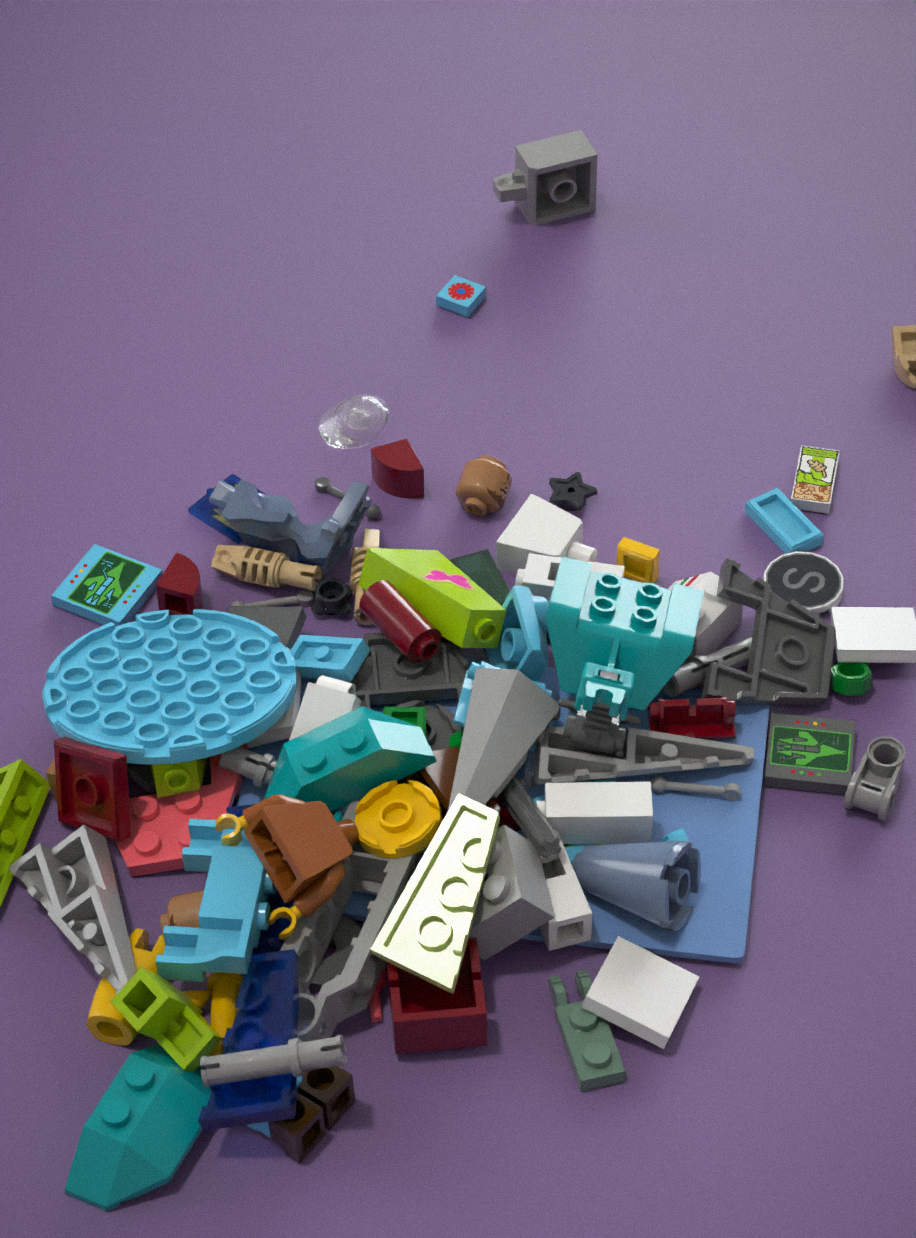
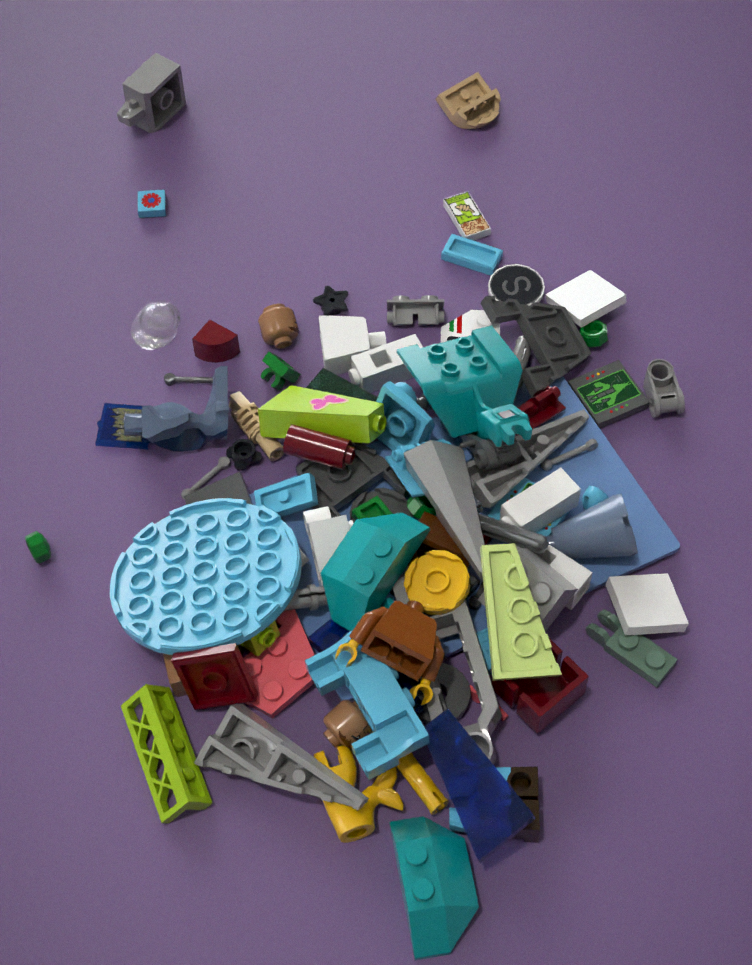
camera: 35 degrees left, 10 degrees up
(38, 576) = (38, 547): none -> green tile
(106, 587) = (88, 528): tile -> none
(168, 1017) = (398, 802): lime brick -> none
(180, 587) = (145, 502): dark red brick -> none
(264, 567) = (185, 457): tan hinge -> none
(284, 1059) = (503, 792): light grey pin -> none
(444, 531) = (280, 369): none -> green tile
(639, 560) = (413, 324): yellow tile -> none
(674, 550) = (426, 308): none -> light grey hinge

